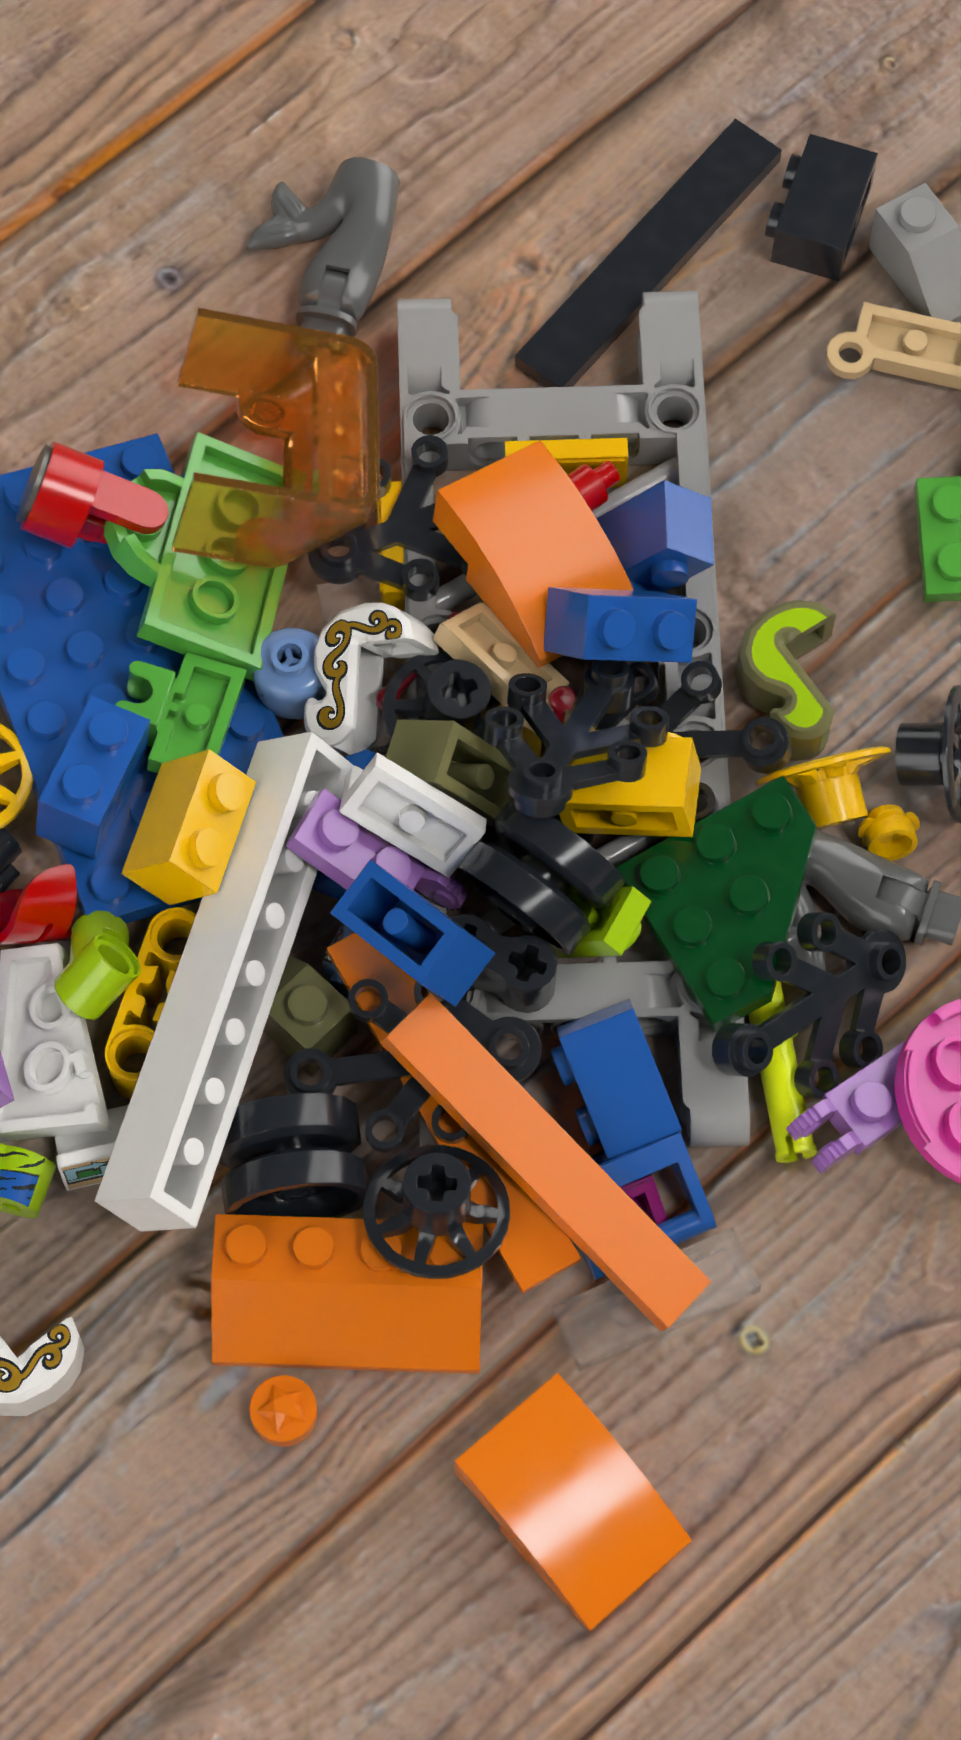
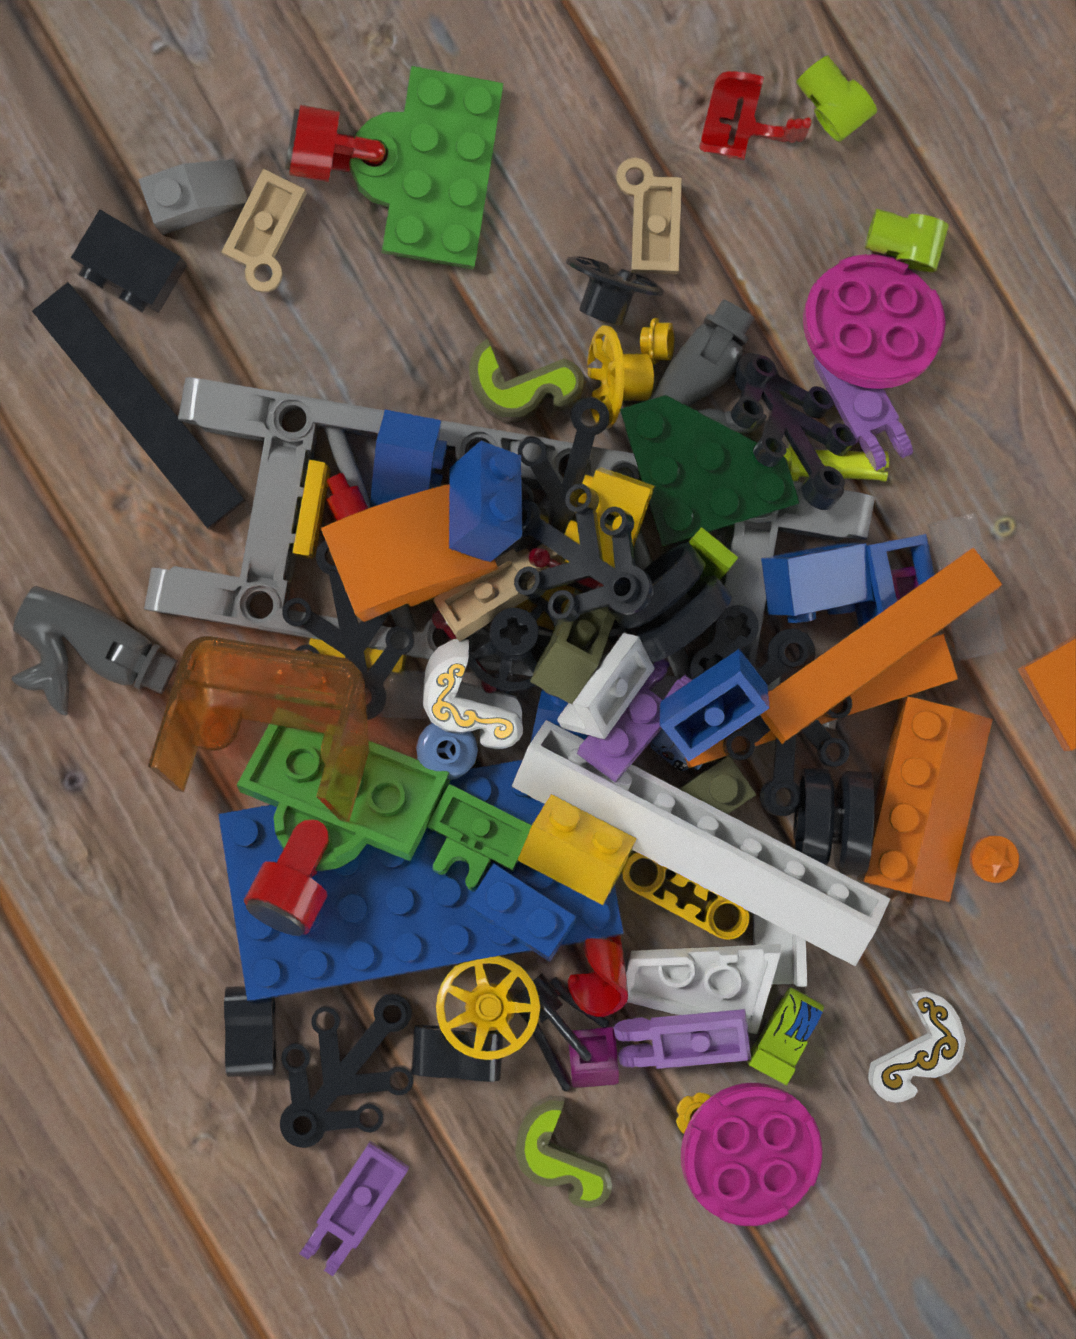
camera: 75 degrees left, 20 degrees up
(98, 965) = (657, 931): lime piece -> none
(437, 1204) = (898, 727): black wheel -> none

